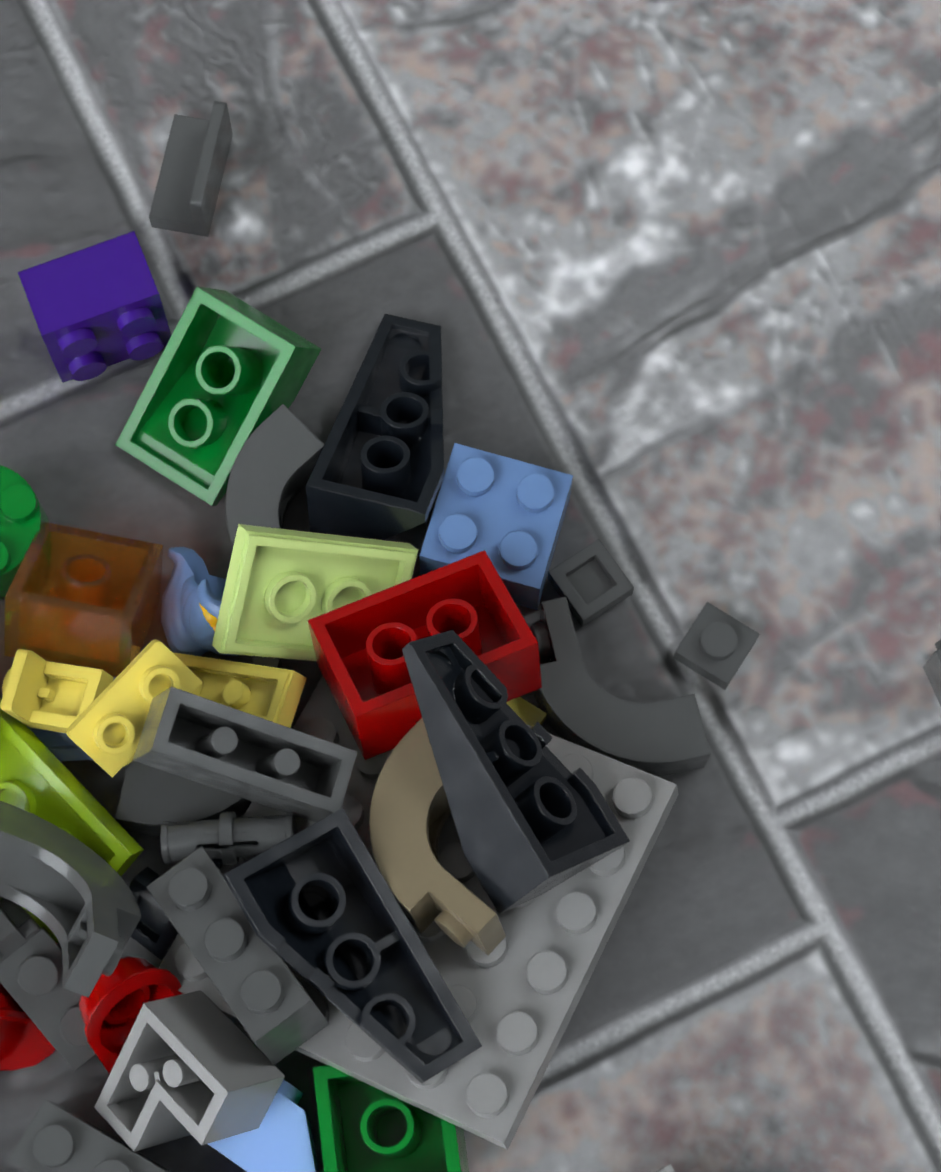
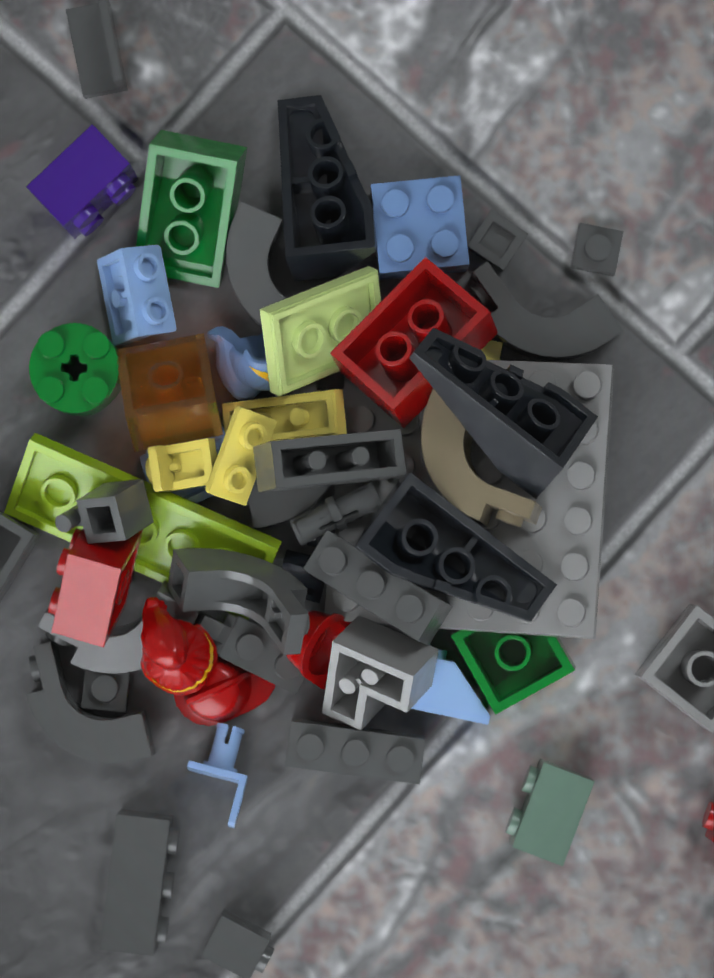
camera: 20 degrees left, 15 degrees up
(105, 468) = (136, 294): none -> light blue bracket

